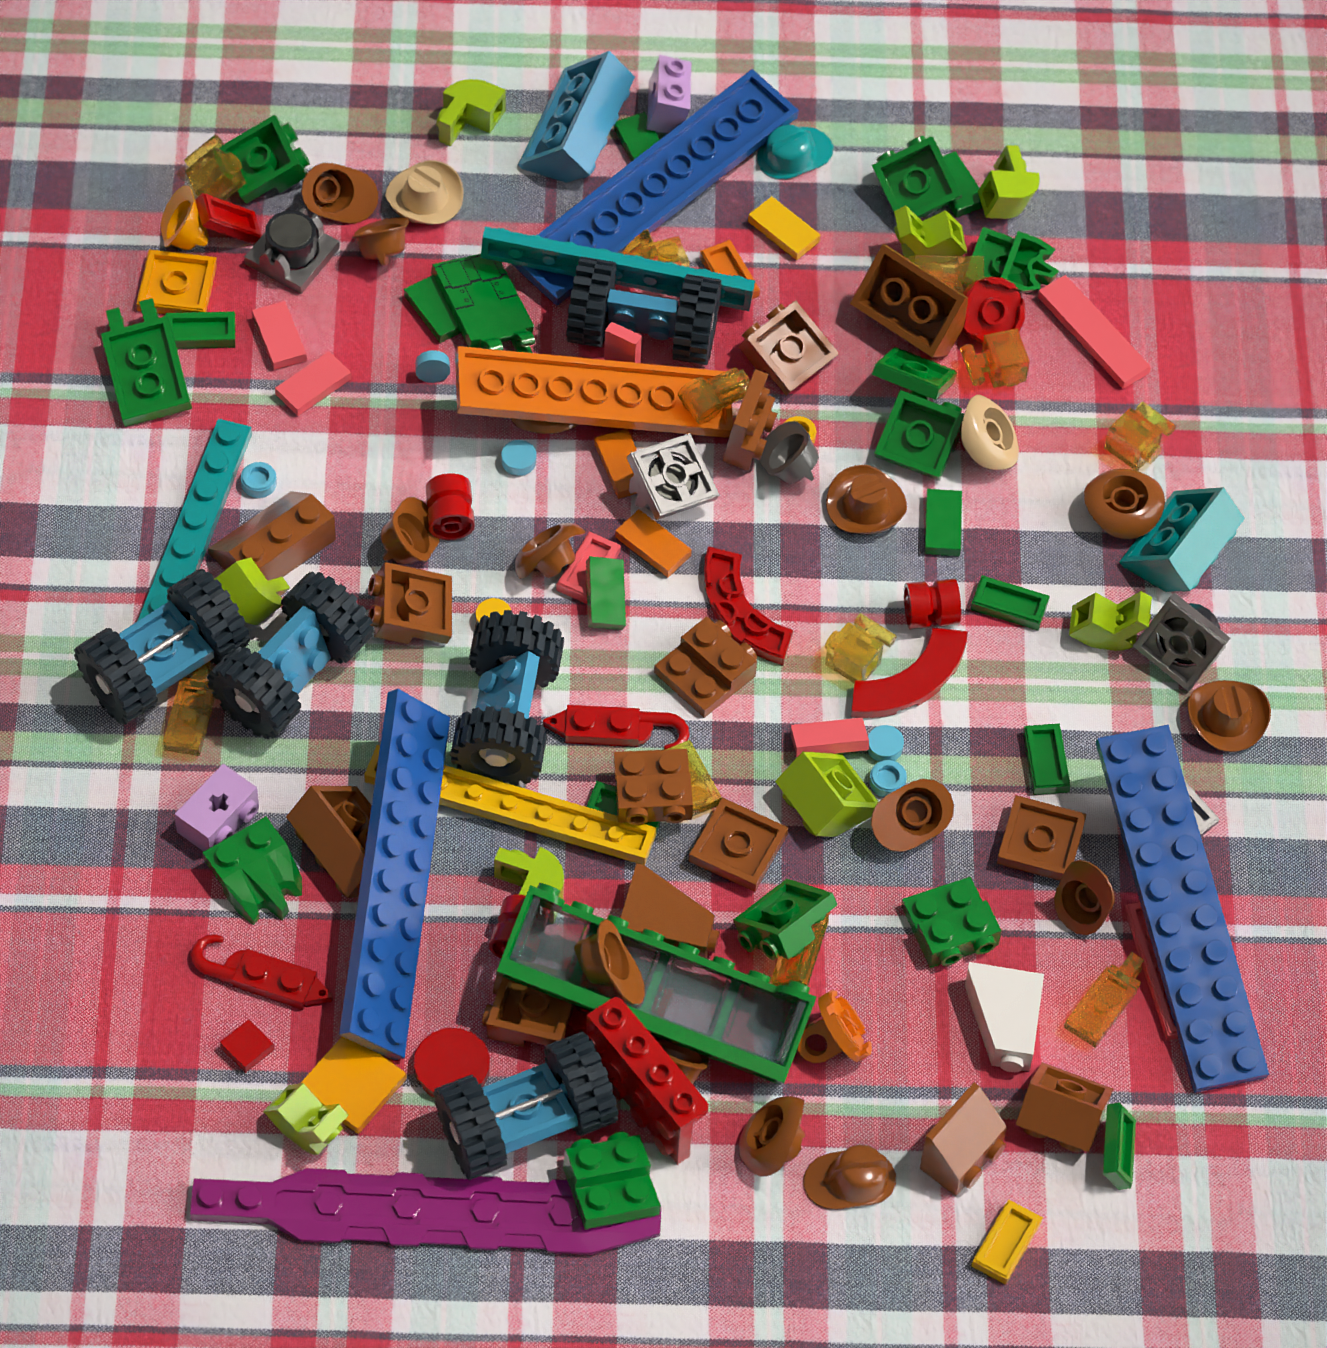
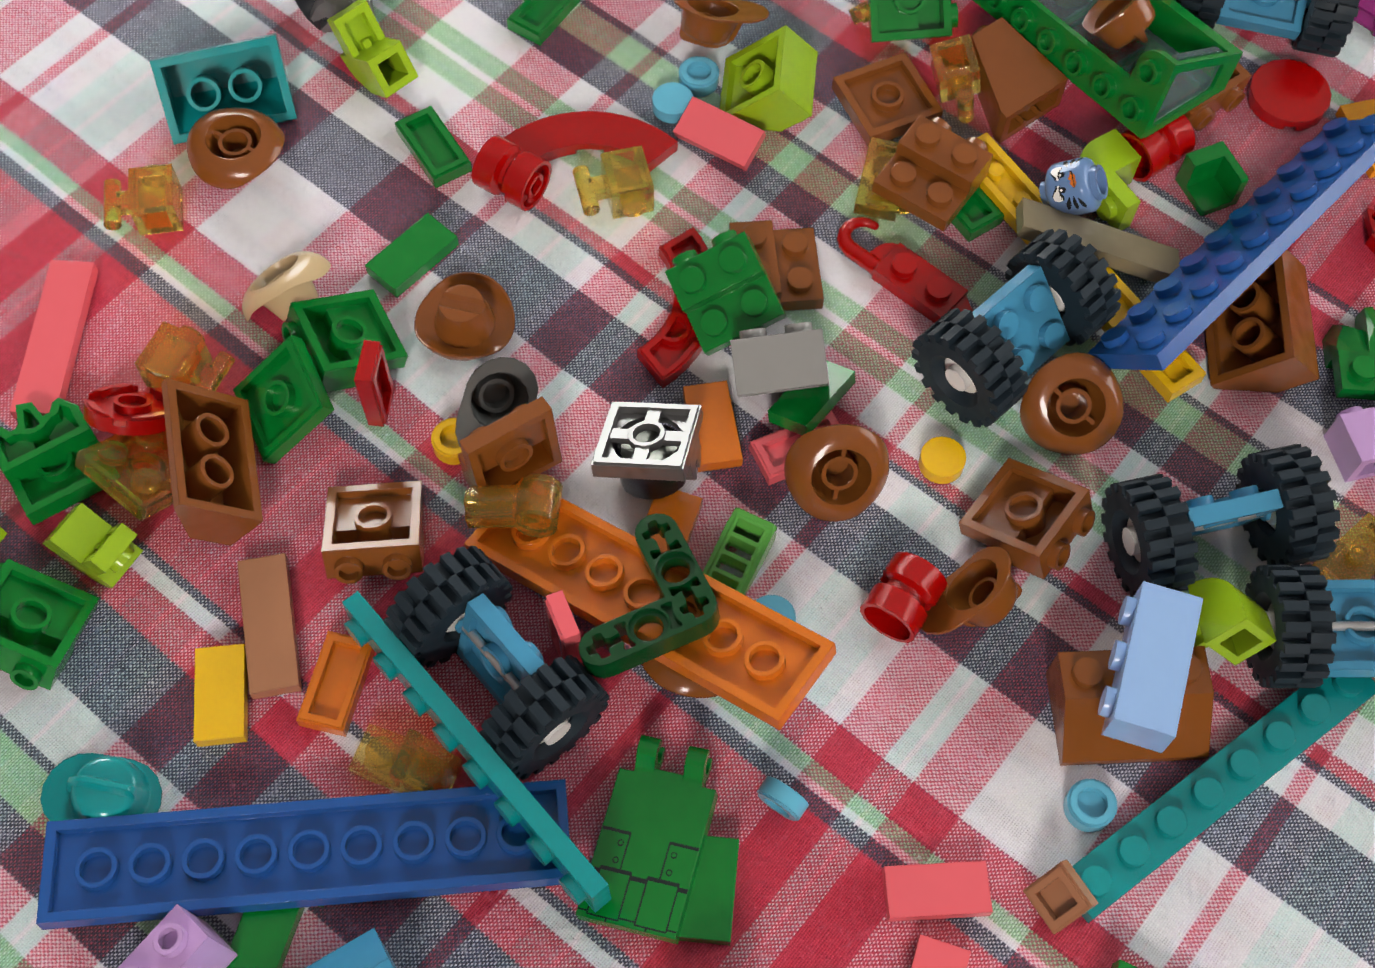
camera: 140 degrees left, 5 degrees up
(243, 415) = (1060, 896): none -> nougat tile
(275, 518) = (1150, 666): none -> light blue brick
(439, 683) = (1072, 405): none -> dark orange hat
(459, 940) = (1211, 178): none -> green panel
(501, 813) = (1119, 248): none -> dark tan tile
(545, 826) = (1074, 186): none -> medium blue head
(566, 375) = (669, 611): none -> dark green beam
(568, 494) = (746, 534): none -> bright green slope
(640, 585) = (780, 360): none -> light grey slope
(703, 879) = (956, 74): none -> clear yellow brick
(714, 605) = (724, 290): none -> green plate
(796, 274) = (269, 626): none -> nougat tile
(867, 408) = (374, 383): none -> red tile

